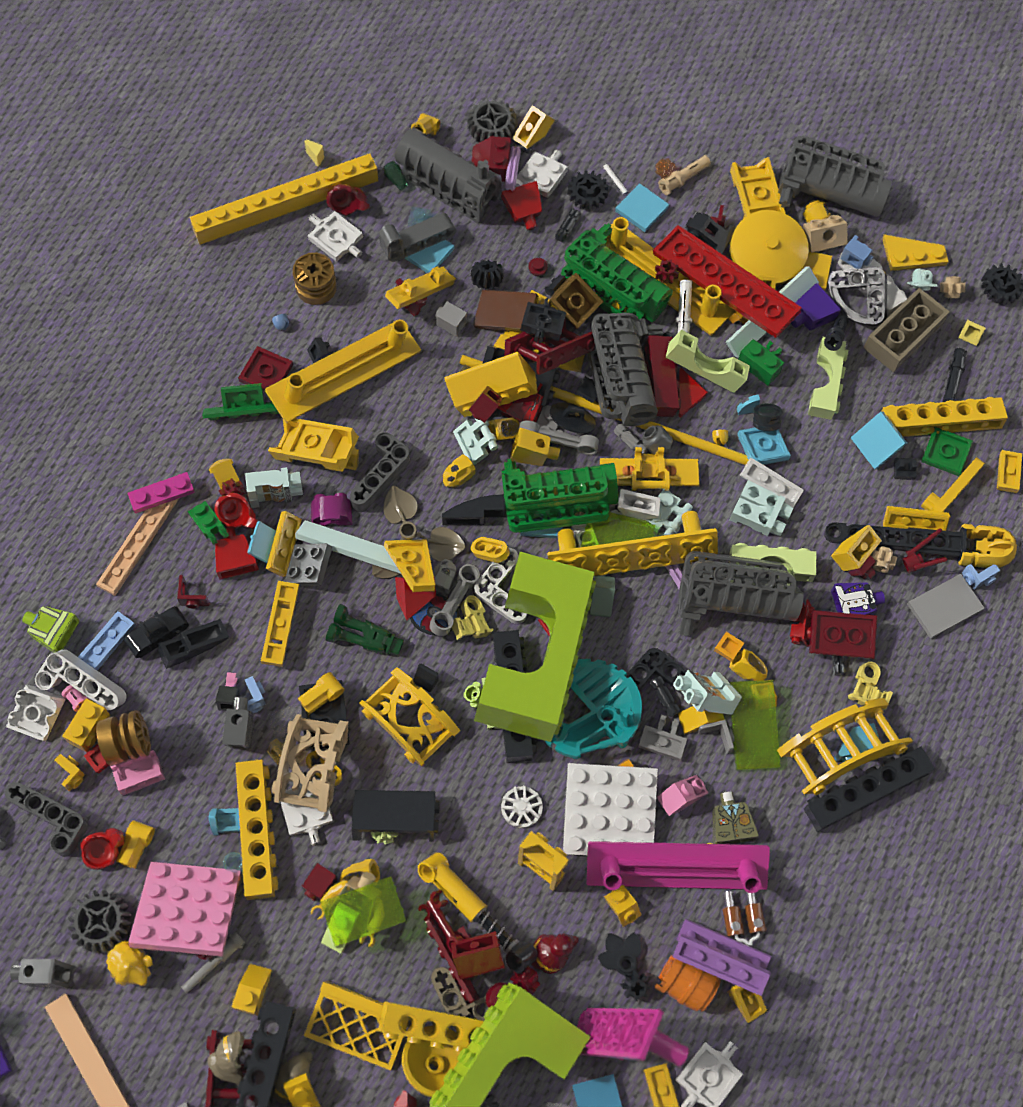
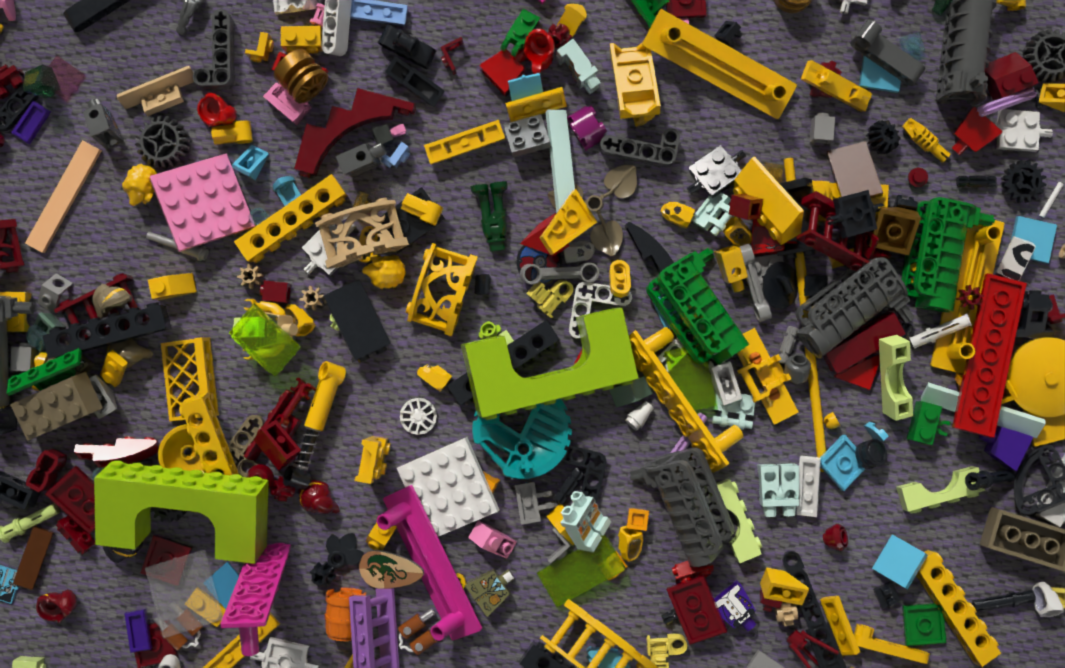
camera: 65 degrees right, 20 degrees up
(48, 898) = (158, 93): none -> tan bracket
(175, 841) = (251, 162): none -> medium azure slope
(192, 699) = (366, 108): none -> dark red arch
(282, 899) = (245, 277): none -> tan gear
(349, 856) = (306, 299): none -> tan gear
(361, 761) = (385, 271): none -> yellow animal
(438, 422) = (715, 171): none -> plate
(491, 768) = (434, 376): none -> yellow rock
(507, 245) = (925, 139): none -> yellow hinge
(584, 327) = (873, 252): none -> dark red bracket
(630, 599) = (638, 417): none -> white cone
(651, 224) = (1016, 258): none -> slope
(663, 913) = (388, 570): none -> shield
(830, 484) = (836, 537): none -> dark red cone
(971, 340) = (1047, 601): none -> white rock

